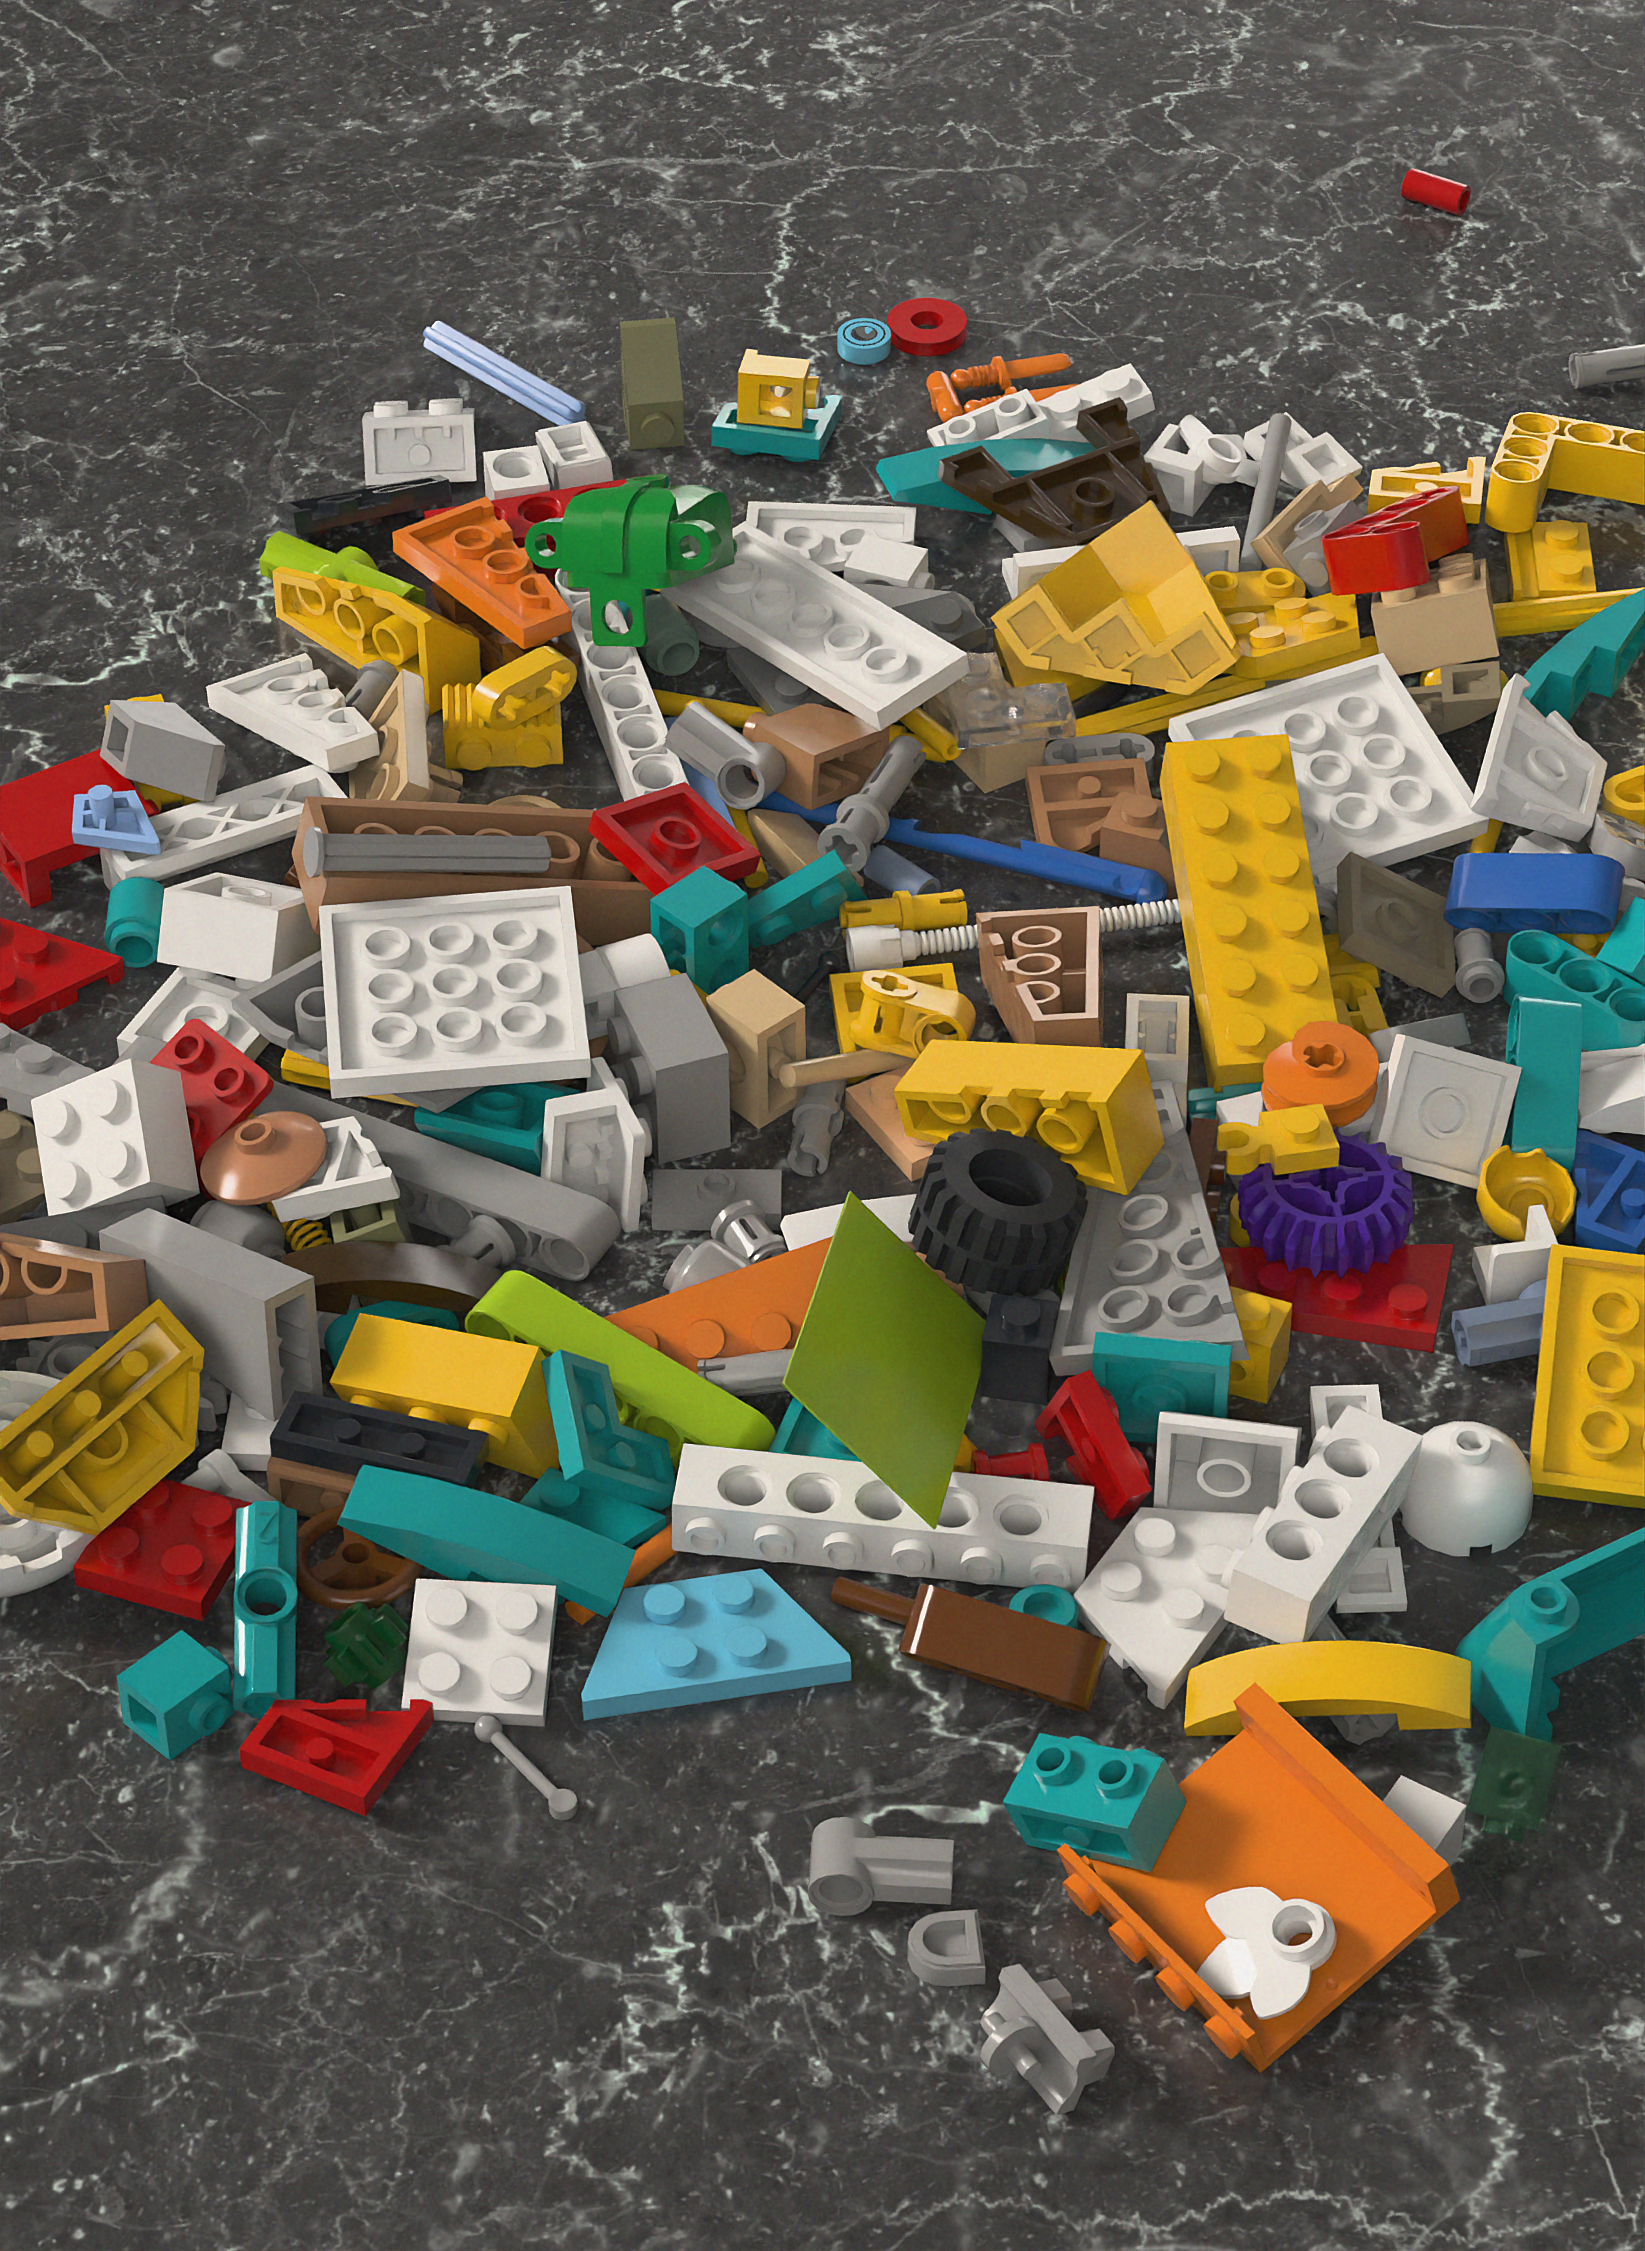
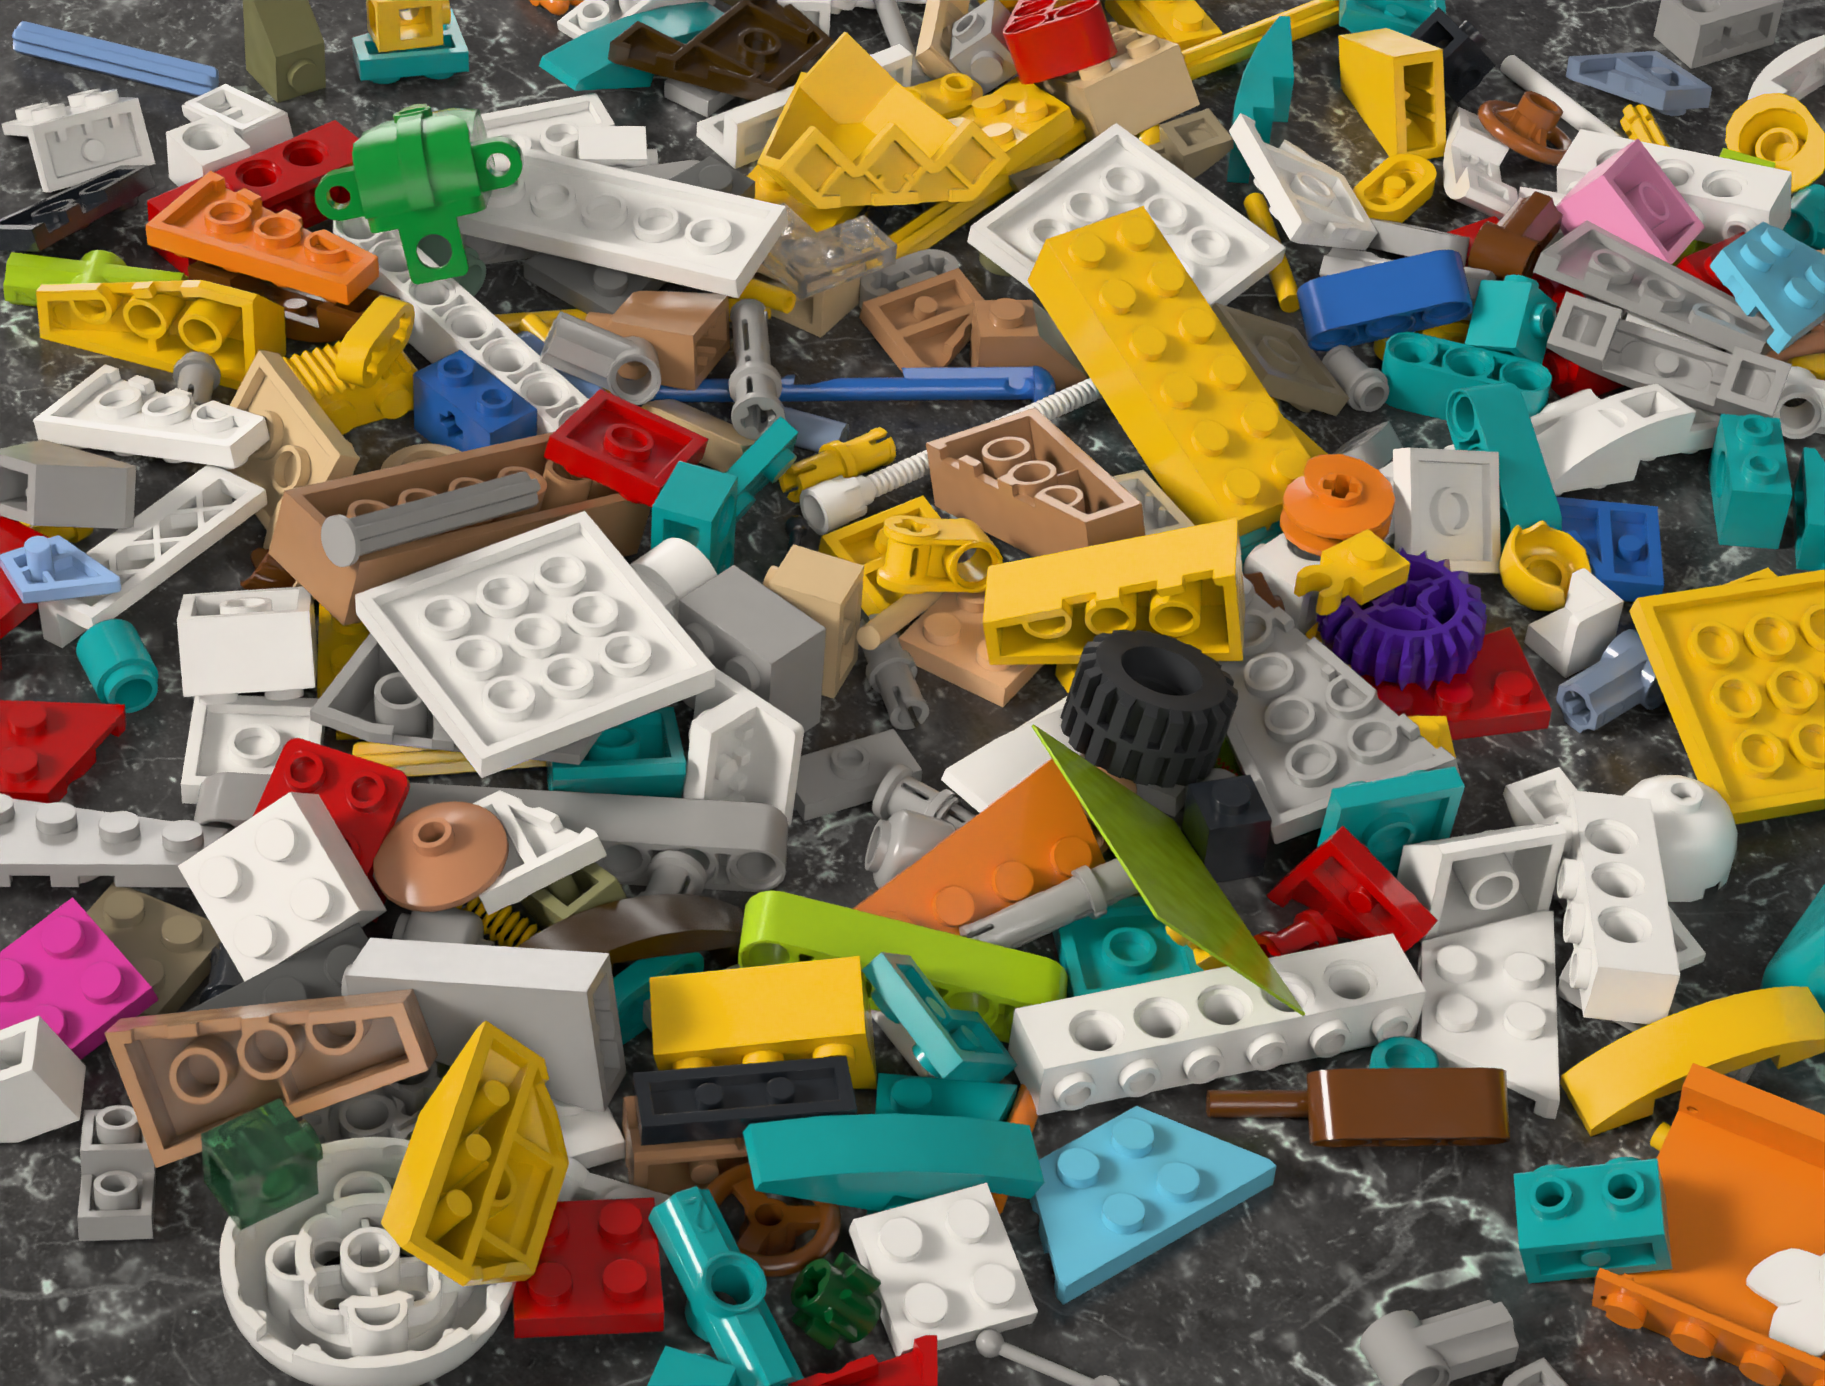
camera: 30 degrees left, 0 degrees up
(586, 765) = (468, 406): none -> blue brick

